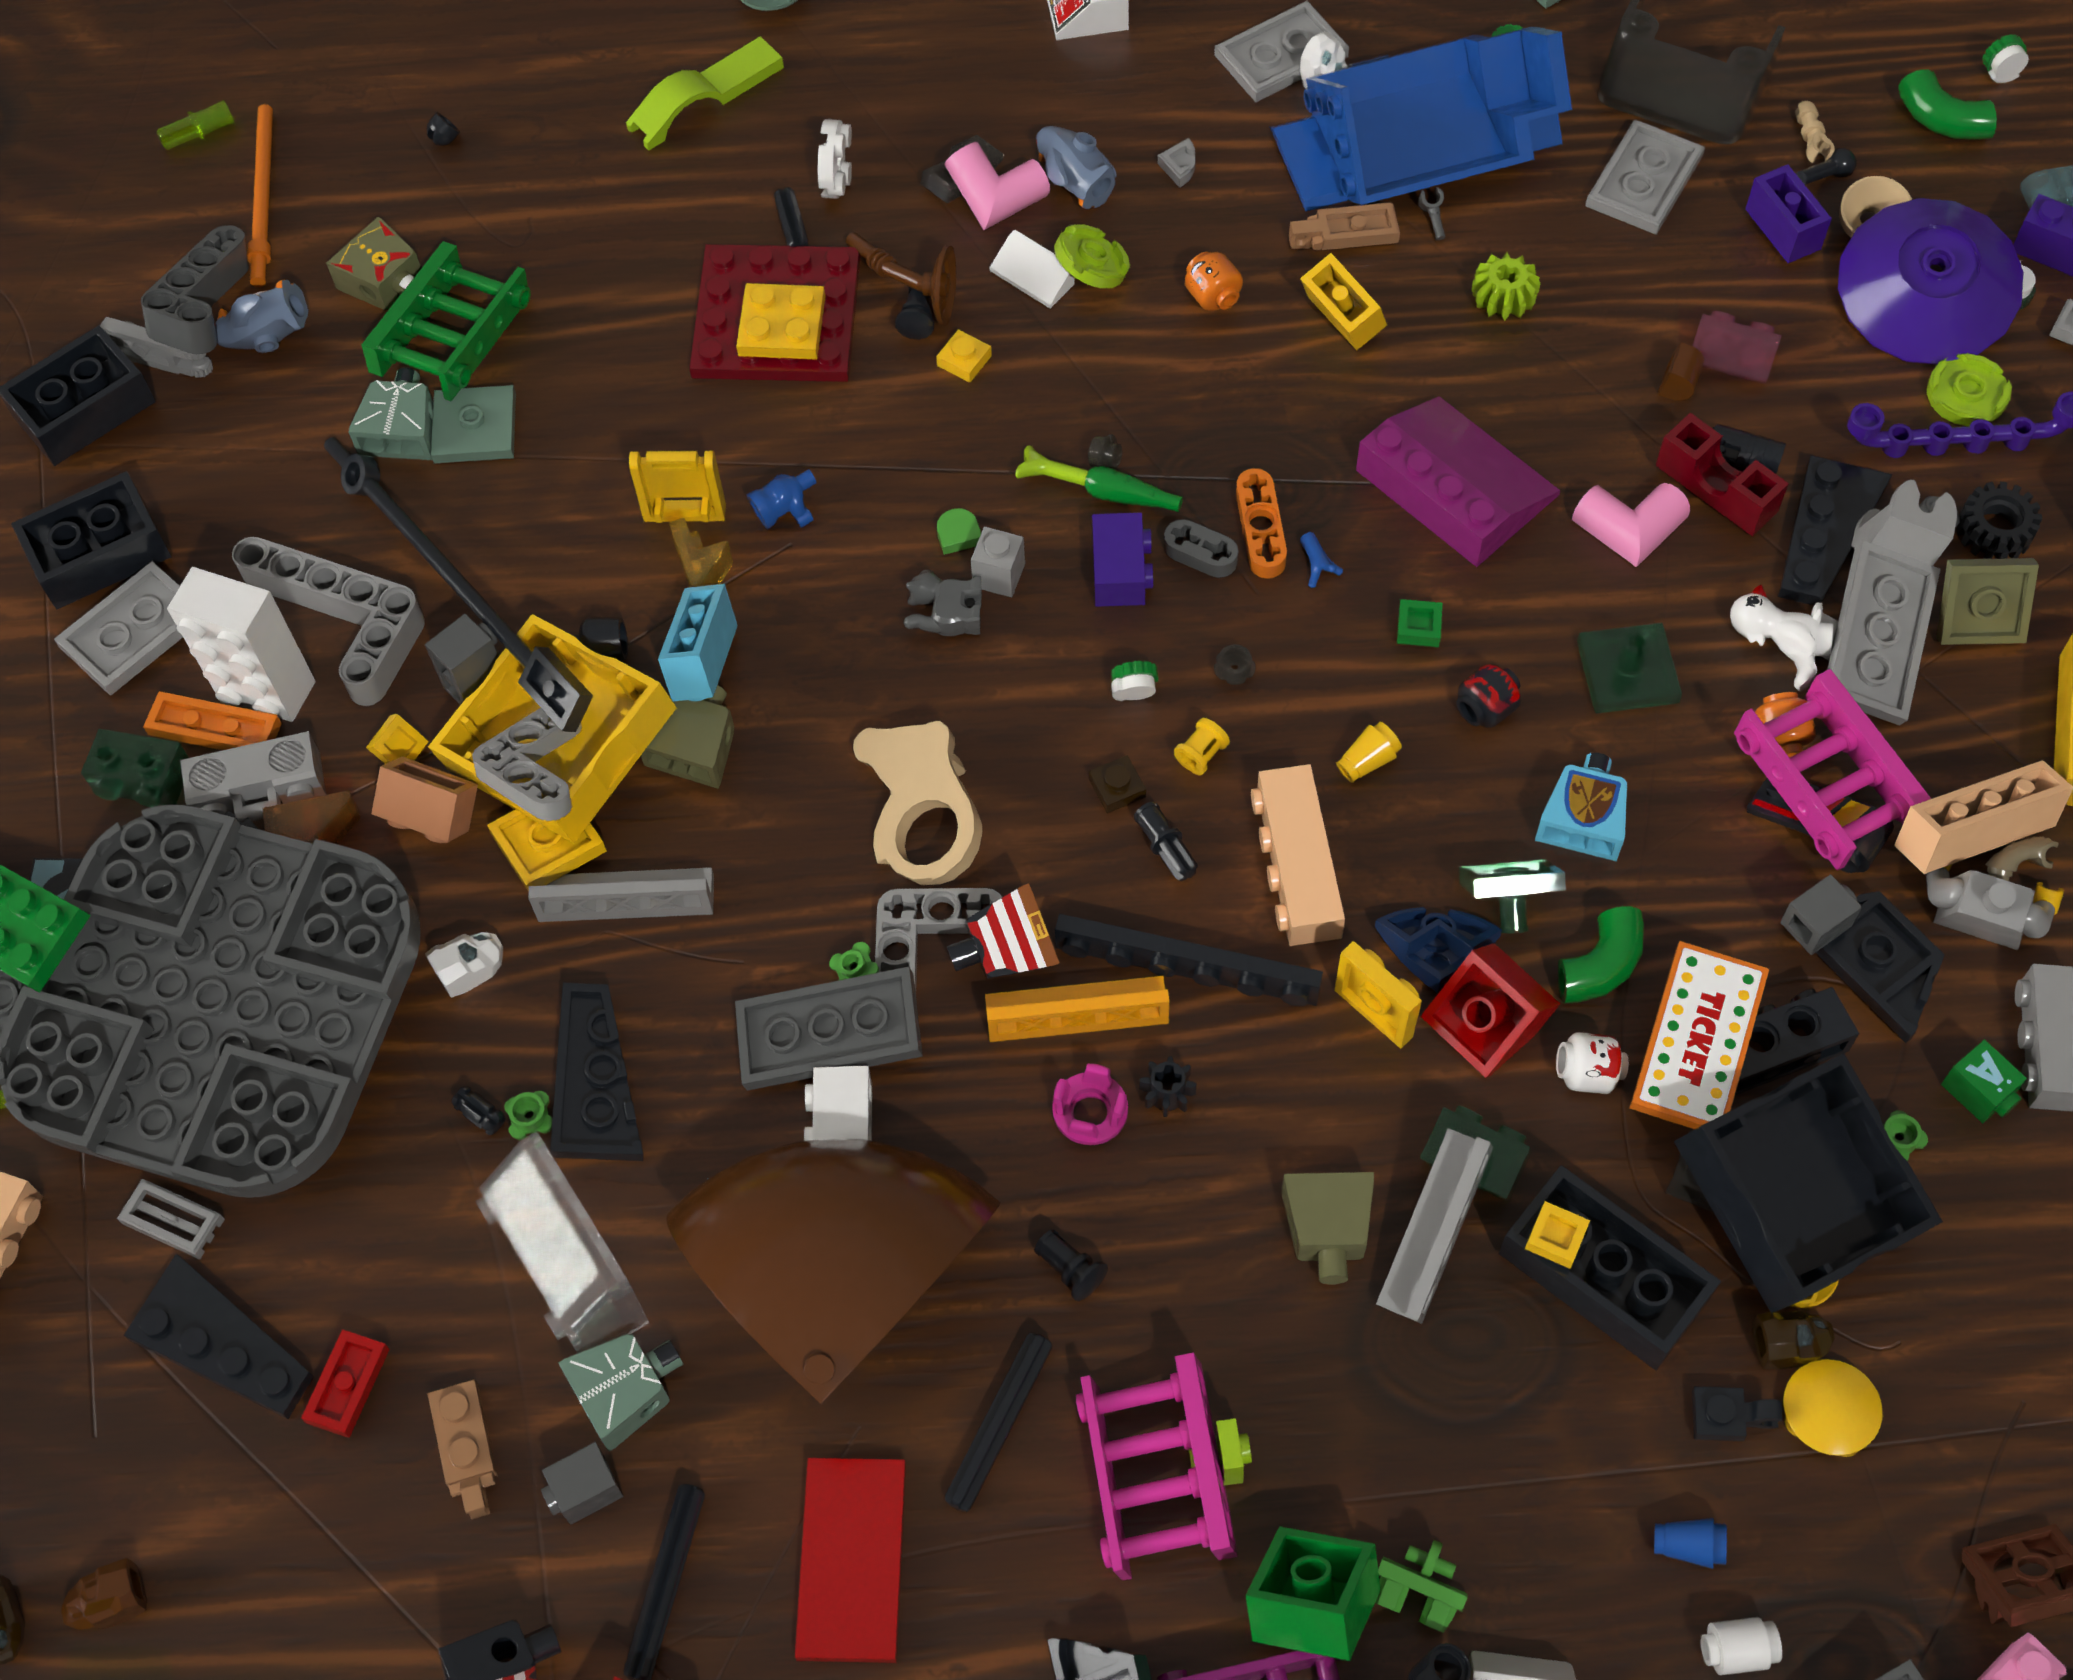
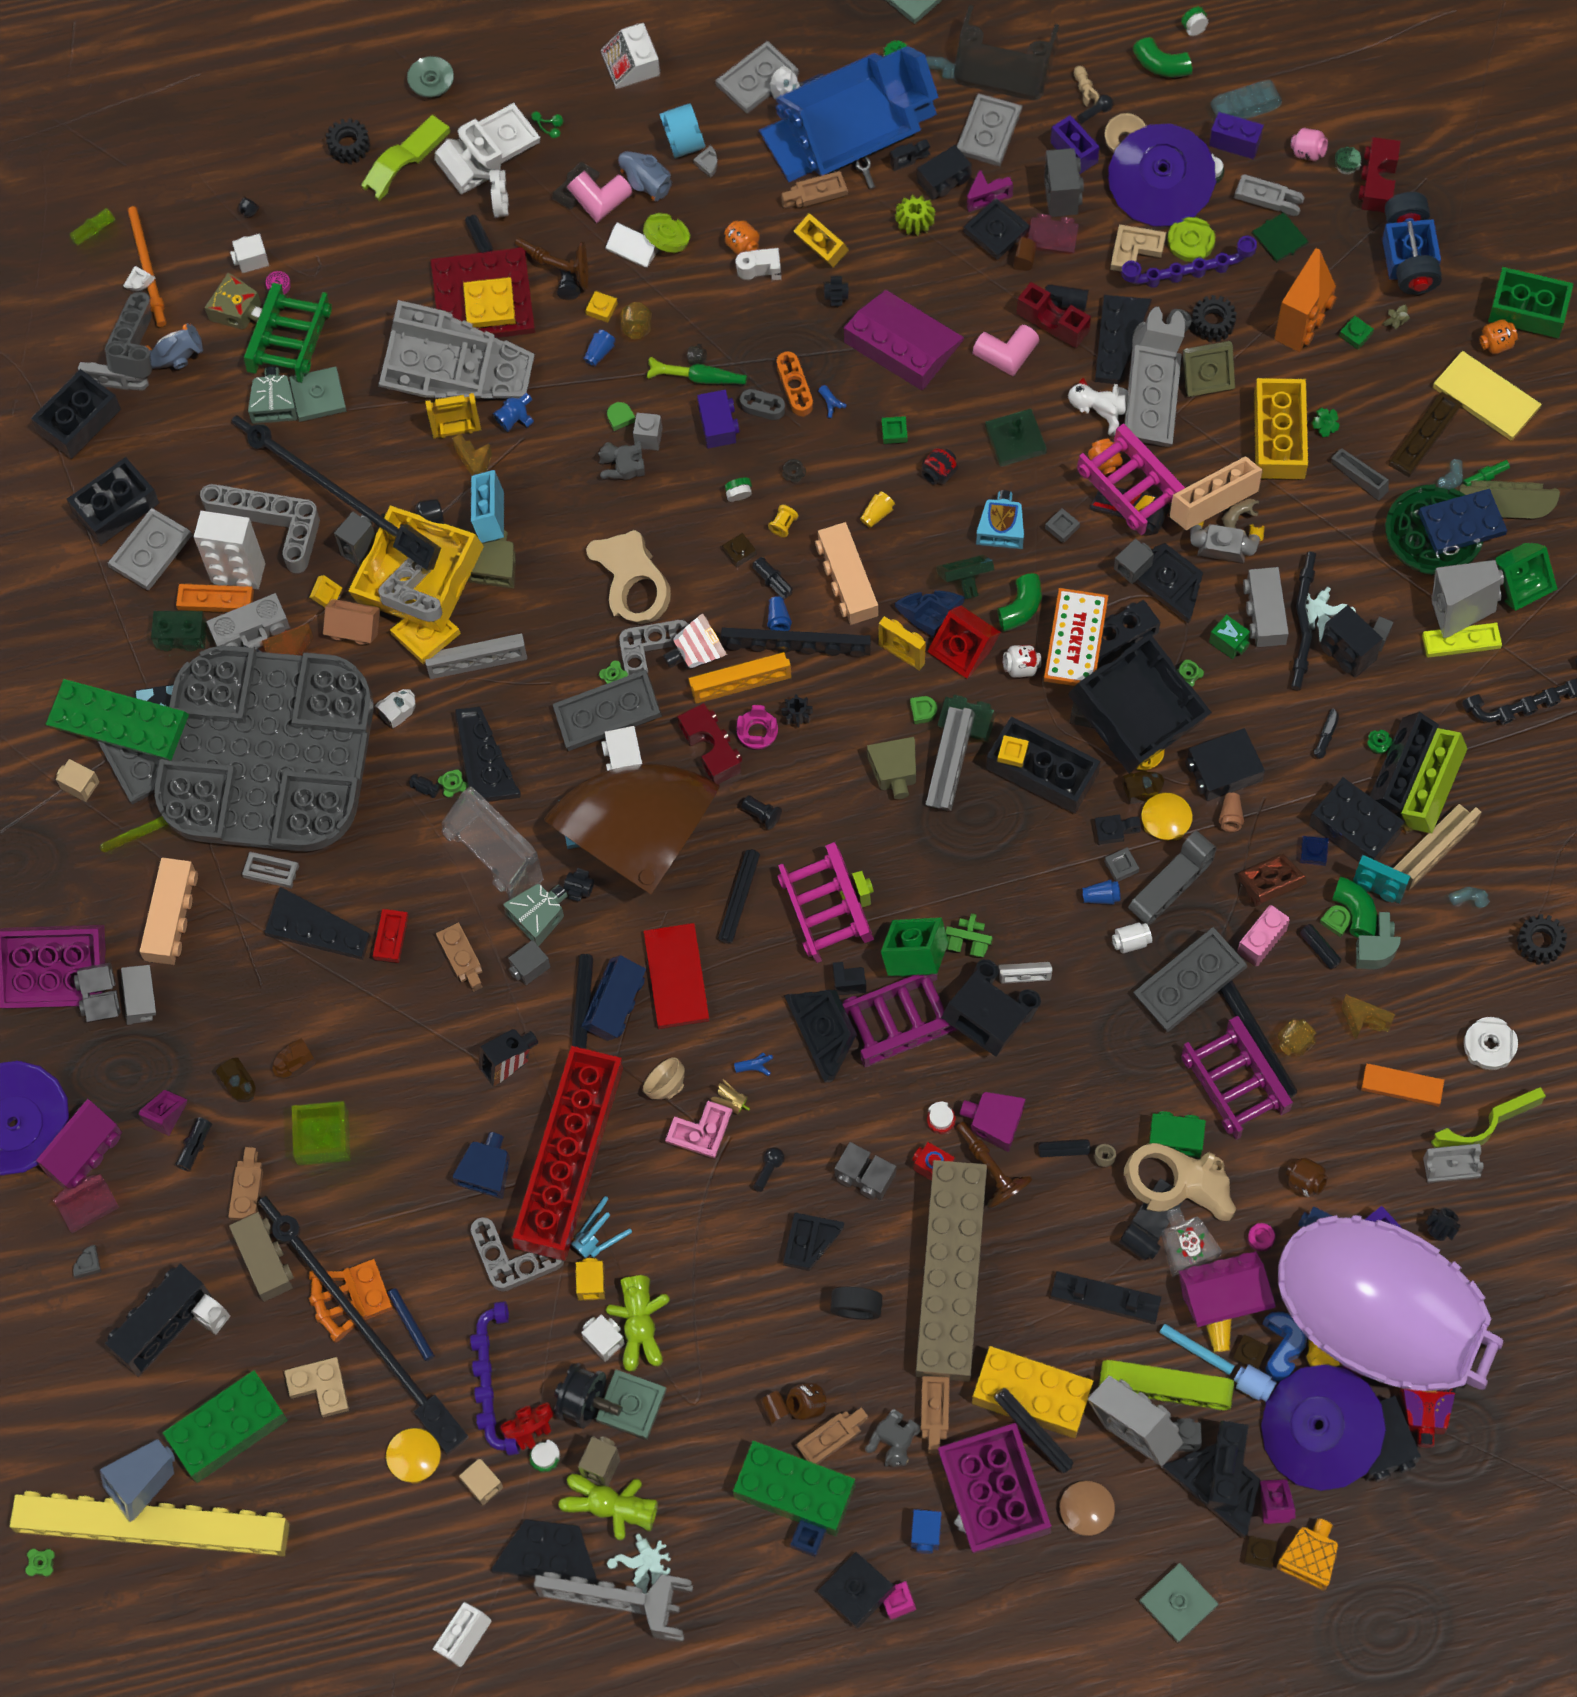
camera: 10 degrees left, 5 degrees up
(240, 210) = (138, 280): none -> white tile
(423, 196) = (249, 253): none -> white brick
(465, 244) = (279, 278): none -> dark pink tile
(618, 41) = (344, 130): none -> black tyre
(688, 389) = (446, 357): none -> light grey wedge
(707, 1347) = (579, 884): none -> black gear
(722, 1587) = (614, 998): none -> dark blue brick
(828, 85) = (485, 147): none -> white piece
(946, 417) = (599, 347): none -> blue cone
(953, 73) = (557, 121): none -> green piece
(989, 1085) = (701, 726): none -> dark red arch
(1014, 383) = (636, 319): none -> clear yellow head
(1147, 107) = (682, 130): none -> medium azure brick
(1164, 908) = (778, 615): none -> blue cone
(1177, 1629) = (848, 980): none -> black panel
(1235, 325) = (758, 264): none -> white leg
(1356, 384) = (836, 290): none -> black gear
(1398, 1121) = (923, 709): none -> bright green tile
(1504, 193) = (905, 155): none -> black plate
(1563, 228) = (944, 172): none -> black brick
(1586, 71) = (941, 63): none -> clear light blue arm
(1627, 271) = (983, 194): none -> magenta slope
(1639, 326) = (996, 228): none -> black plate
(1694, 831) = (1062, 525): none -> dark grey plate
(1736, 1490) = (1121, 864): none -> dark grey plate
(1762, 266) = (1063, 182): none -> dark grey brick
(1836, 1539) = (1174, 879): none -> dark grey beam
(1871, 379) = (1136, 241): none -> tan plate
(1956, 1325) = (1225, 764): none -> black brick
(1960, 1424) = (1231, 813): none -> nougat cone

